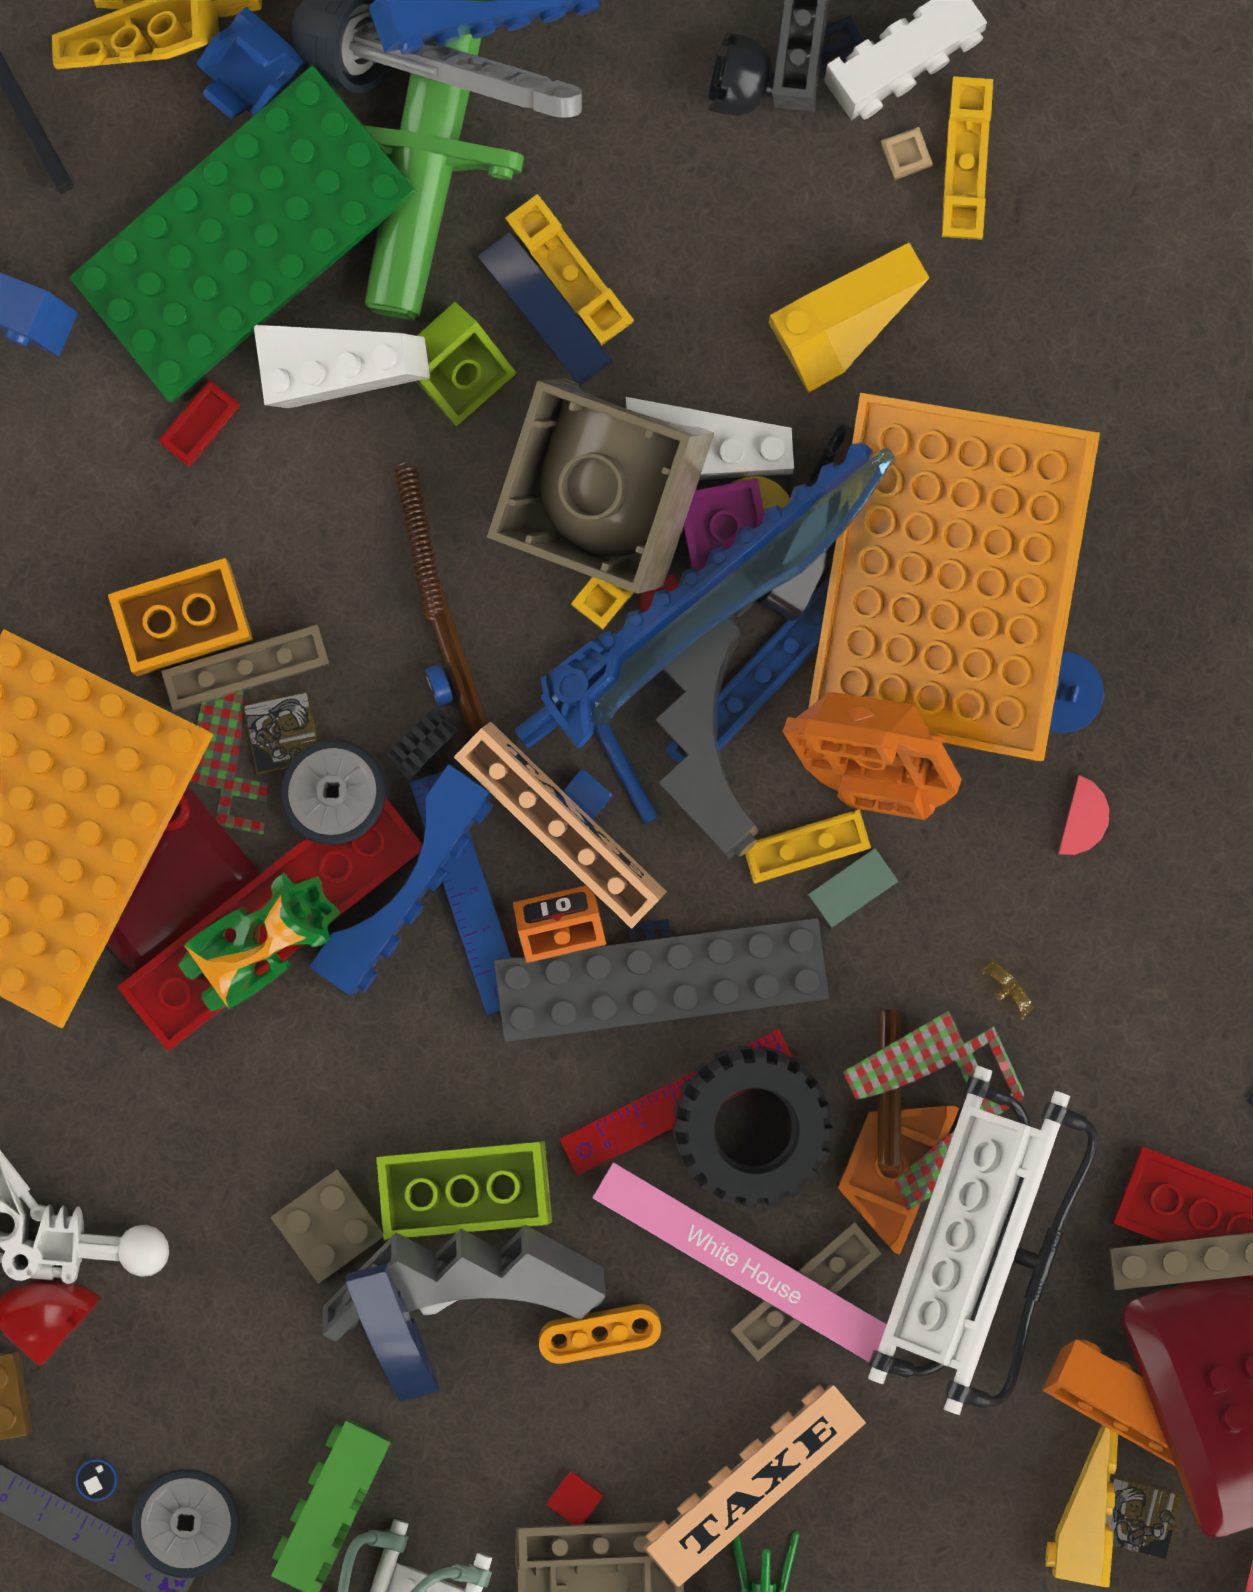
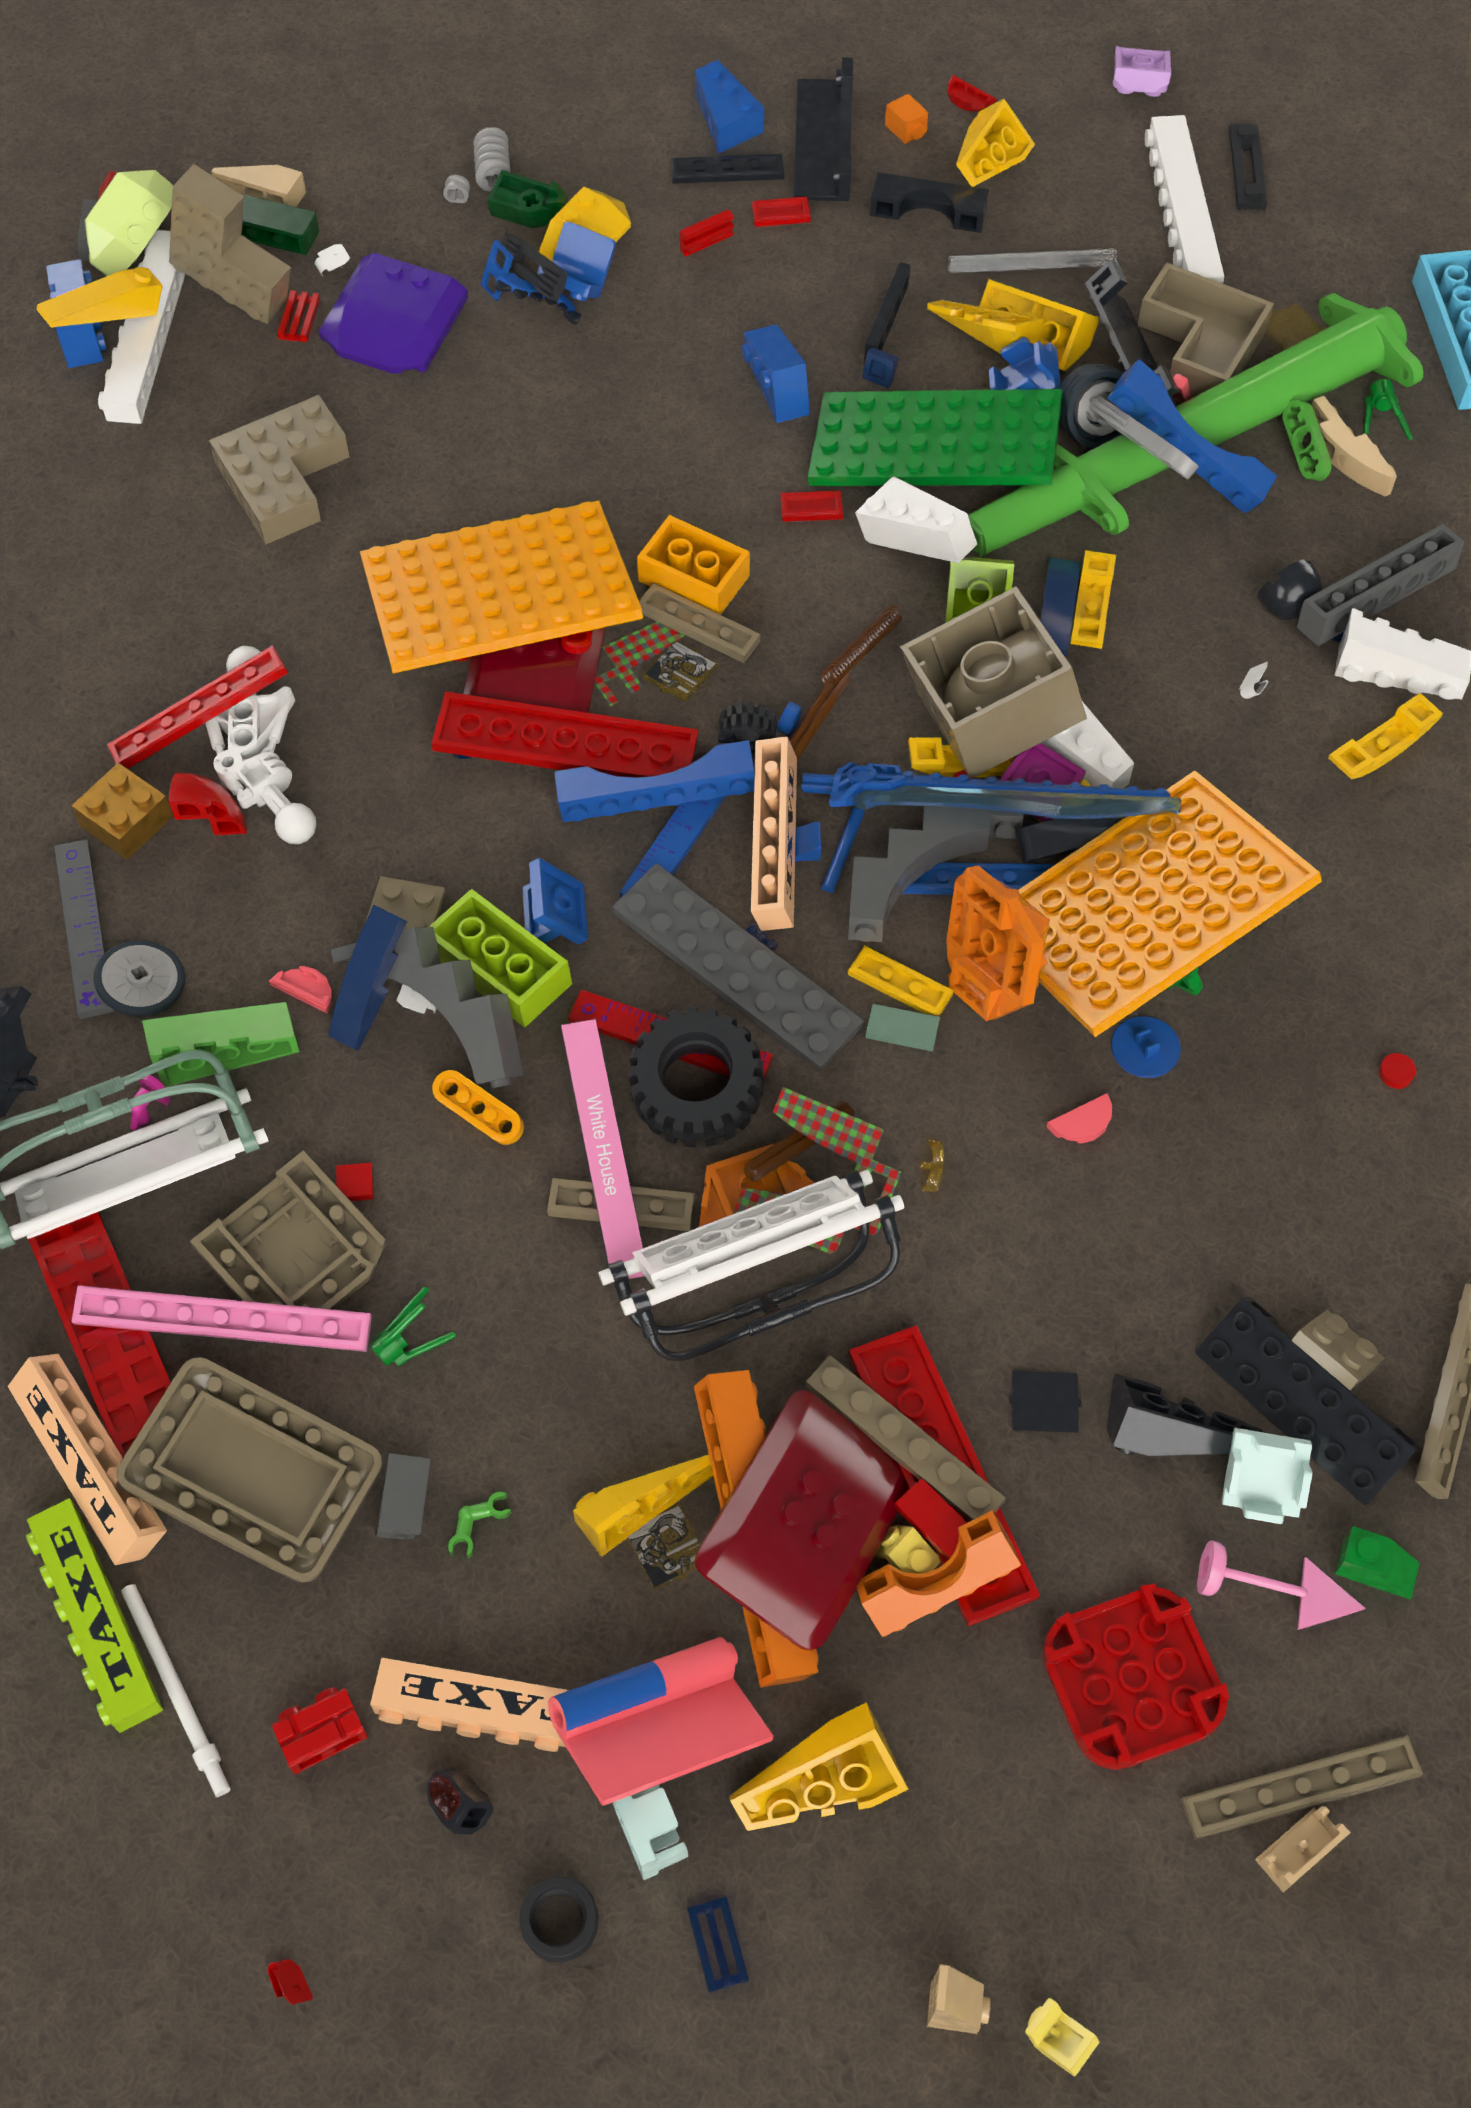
camera: 45 degrees right, 25 degrees down
(91, 192) = (880, 367): none -> dark blue plate
(96, 1479) = (125, 912): tile -> none
(232, 964) = (522, 729): green hips -> none
(329, 1378) = (305, 985): none -> coral tile
(332, 819) = (671, 712): light grey wheel -> none
(453, 1090) = (554, 904): none -> blue bracket
(559, 923) = (713, 880): orange brick -> none
(754, 1484) = (461, 1269): light nougat brick -> none
(795, 210) = (1252, 677): none -> white piece
(838, 321) = (1228, 749): yellow wedge -> none
(906, 153) = (1350, 713): tan tile -> none

